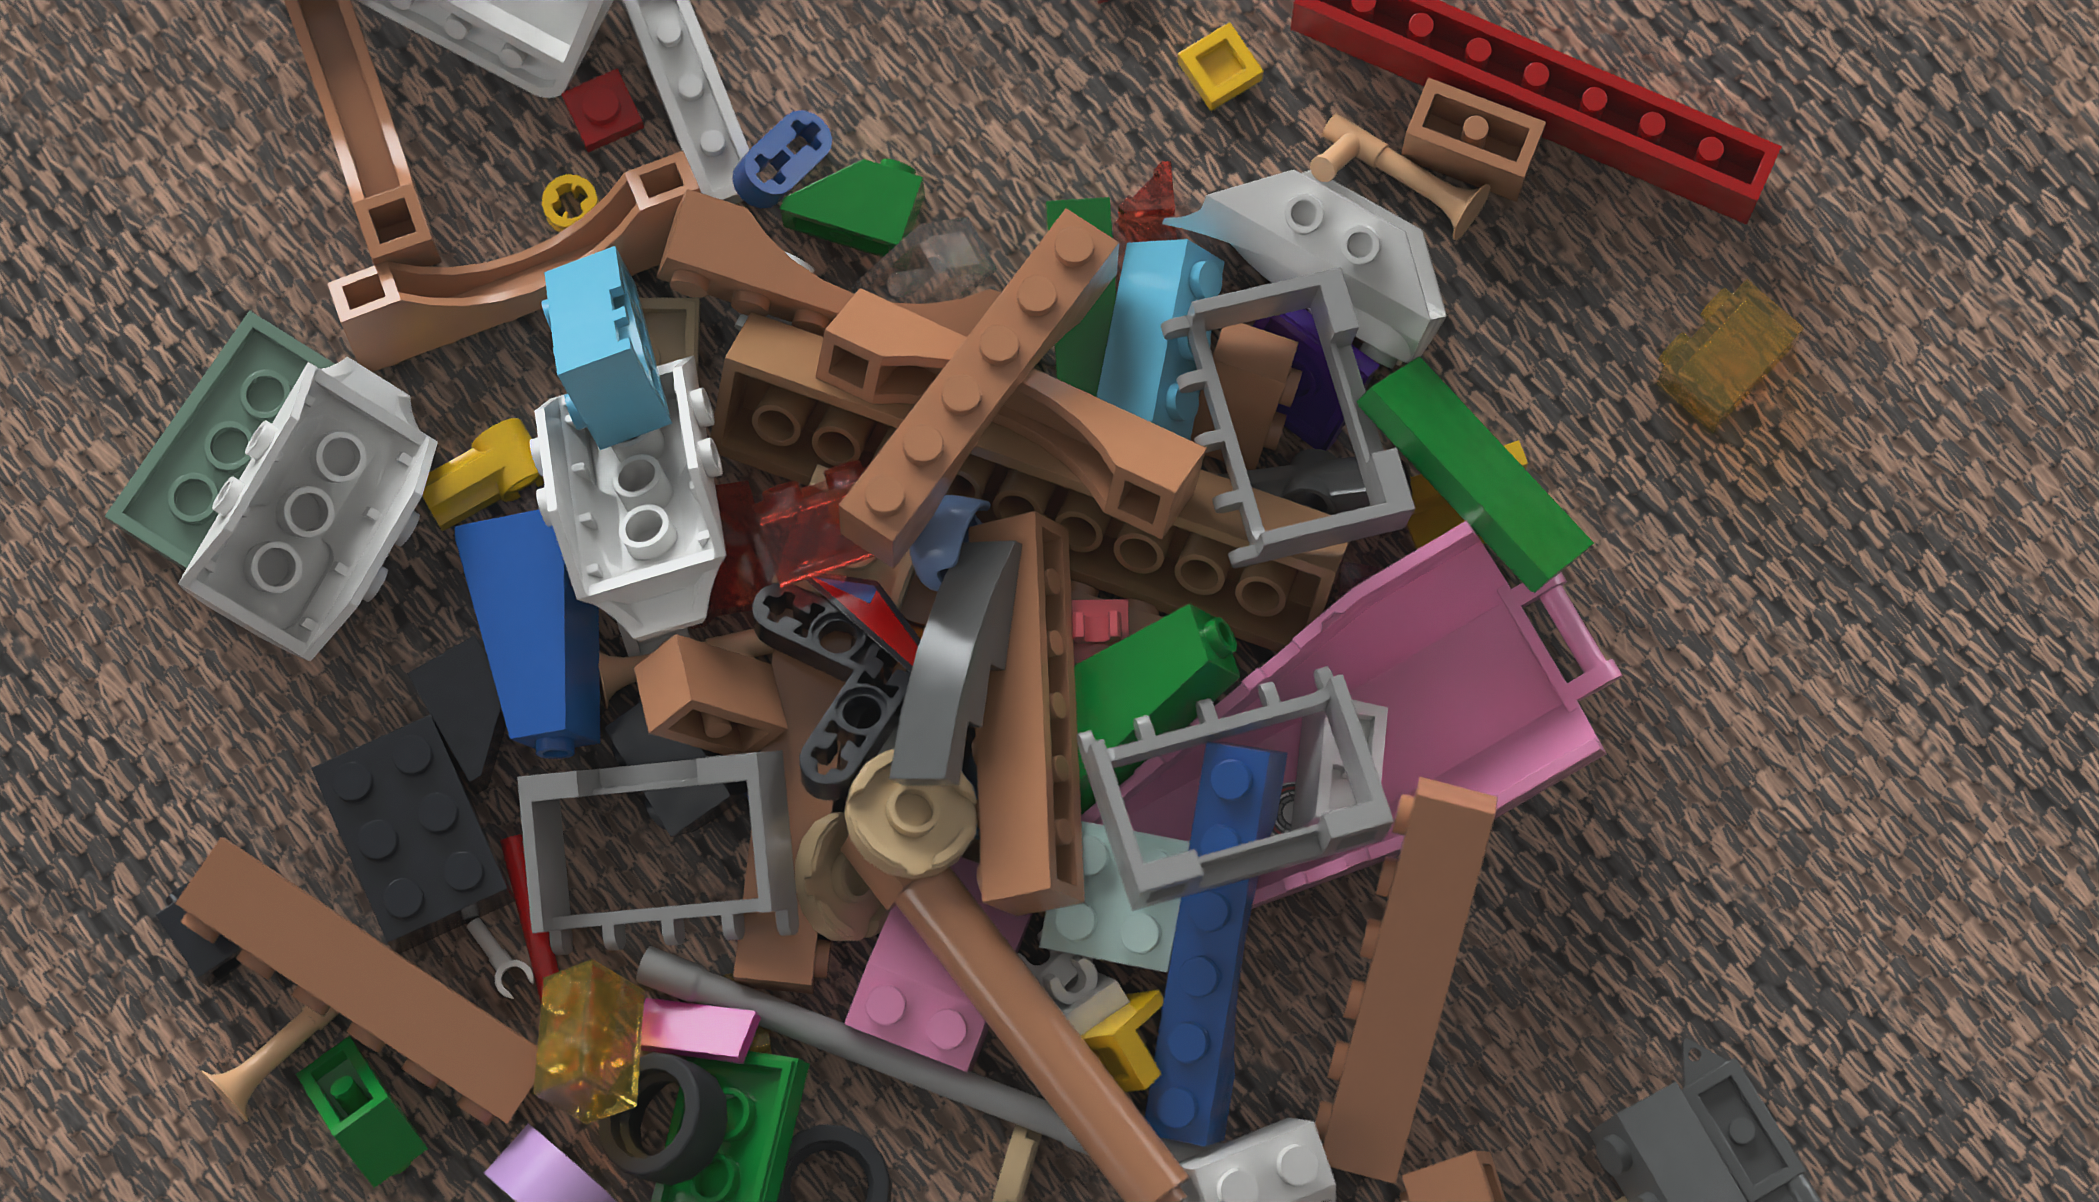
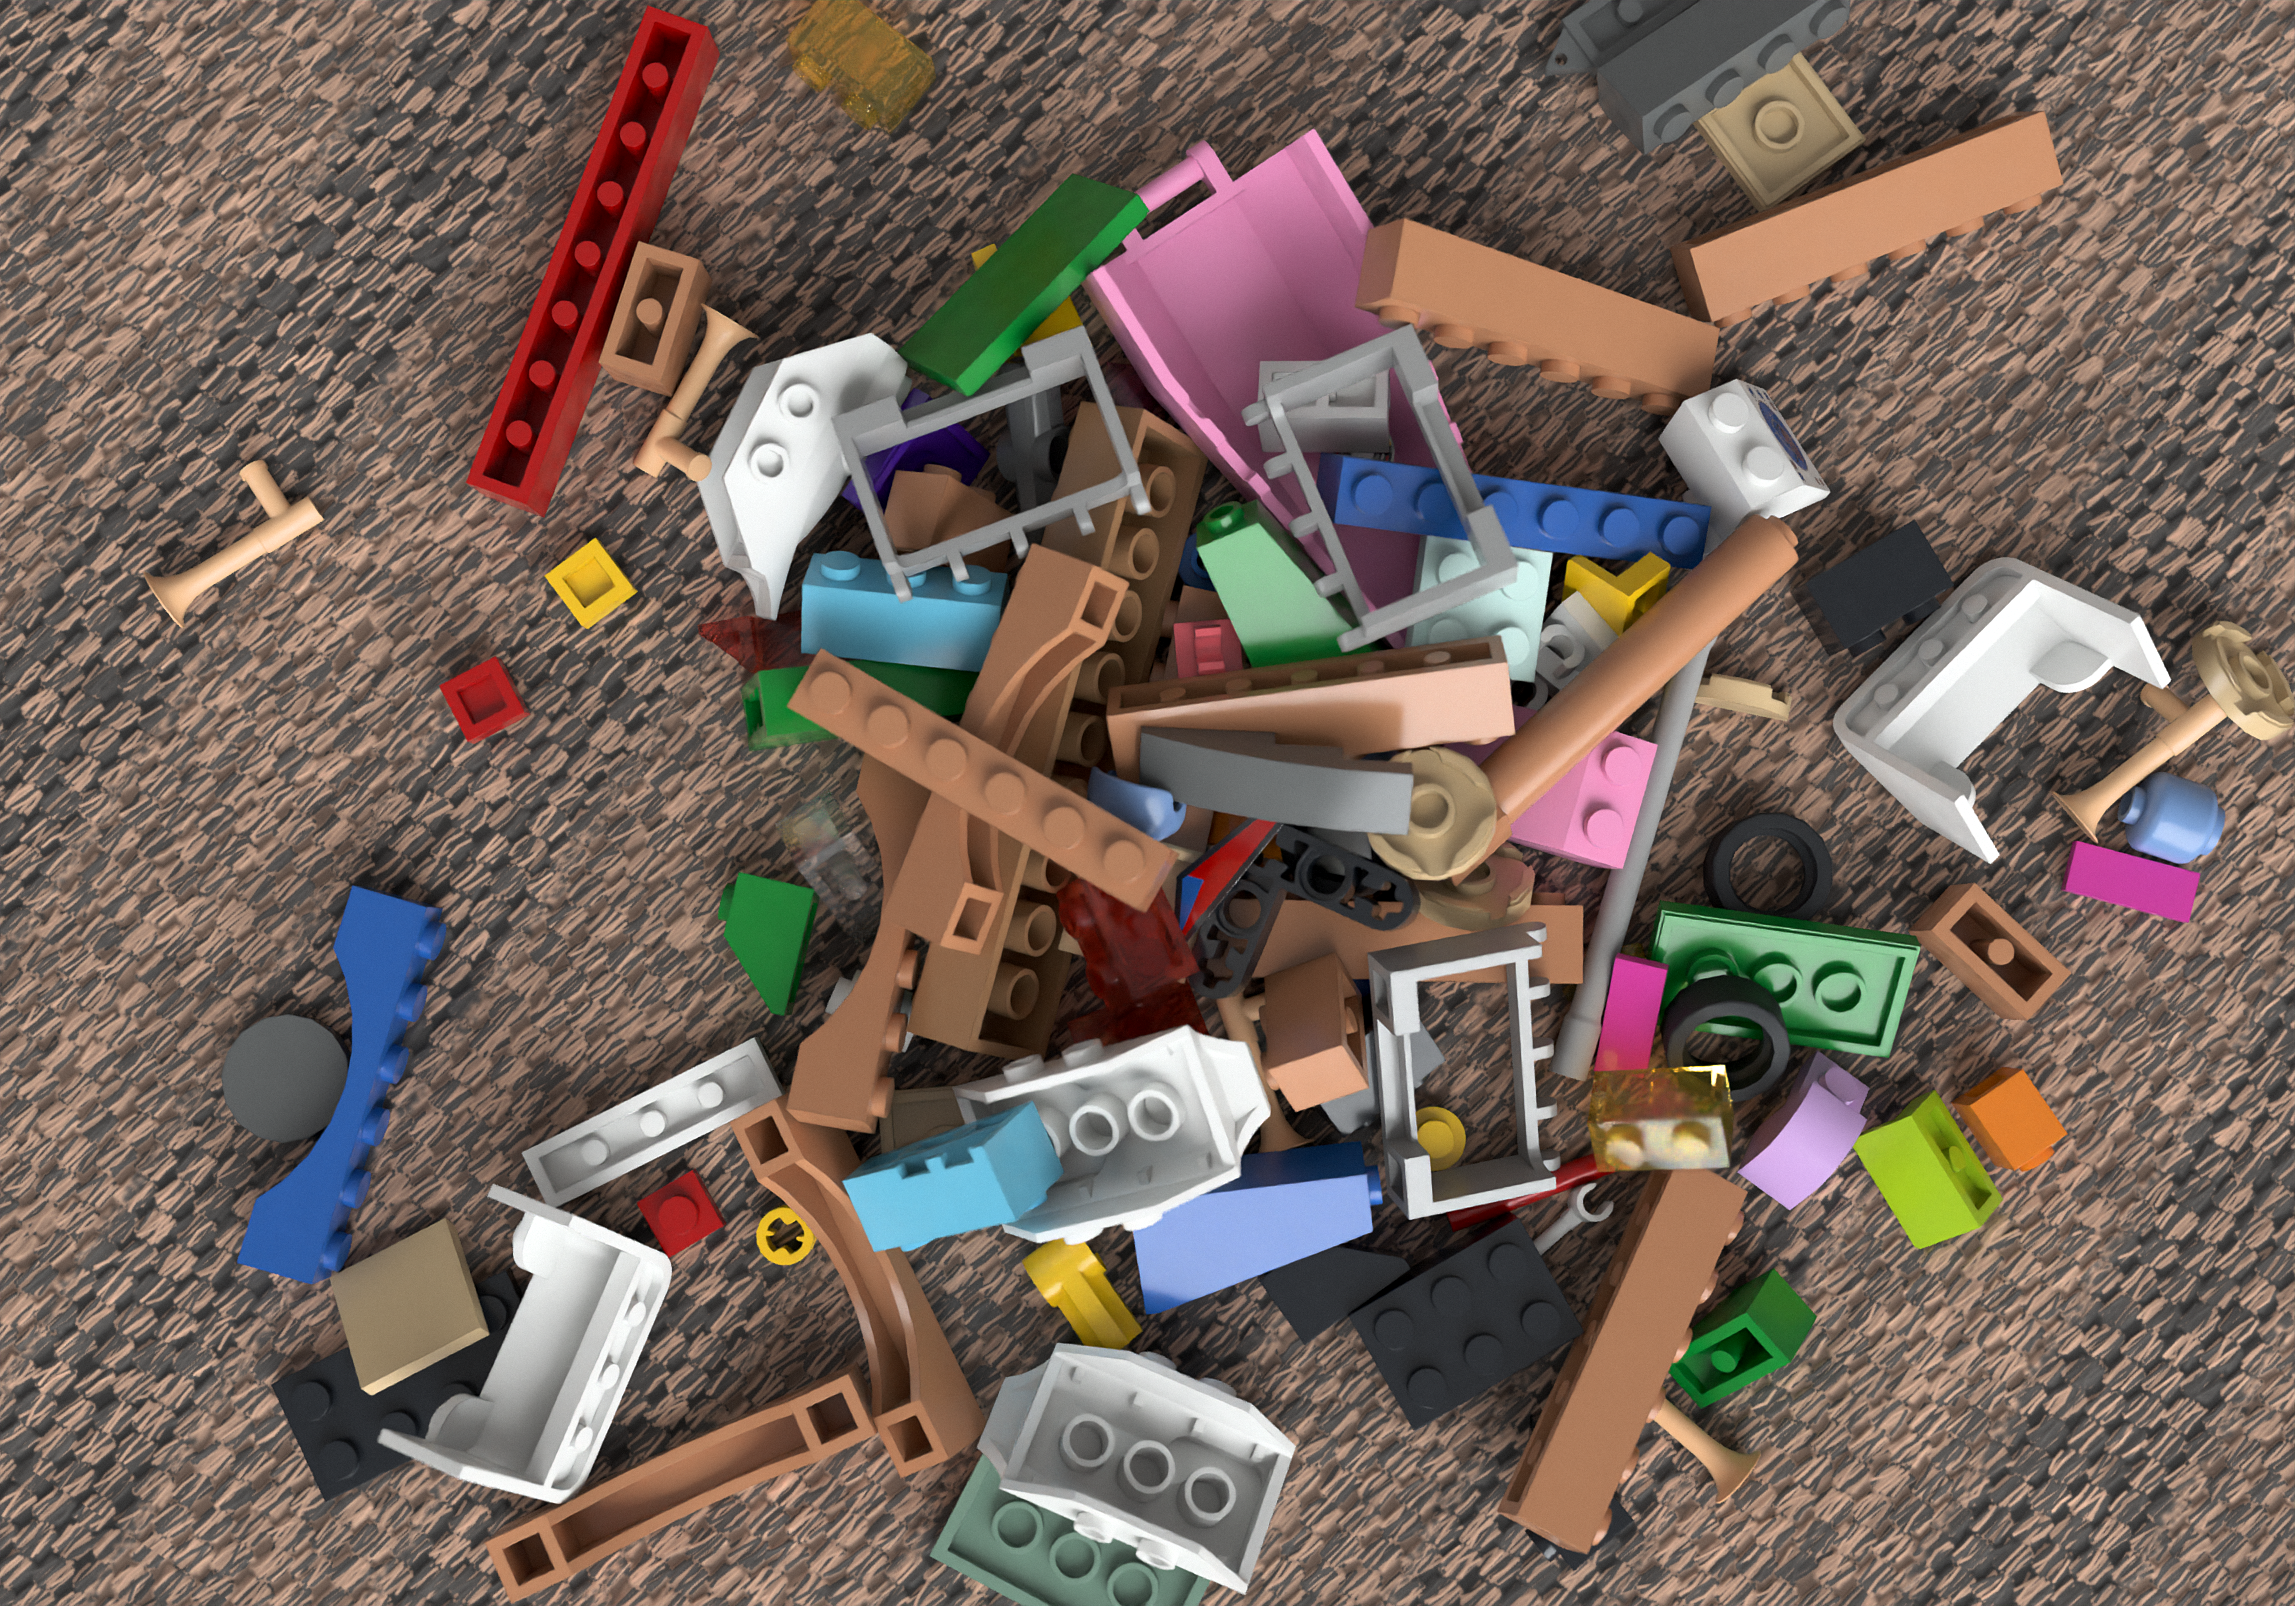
camera: 100 degrees left, 10 degrees up
(595, 828) = (1440, 1136): none -> yellow plate
(773, 150) = (734, 1010): blue beam -> none

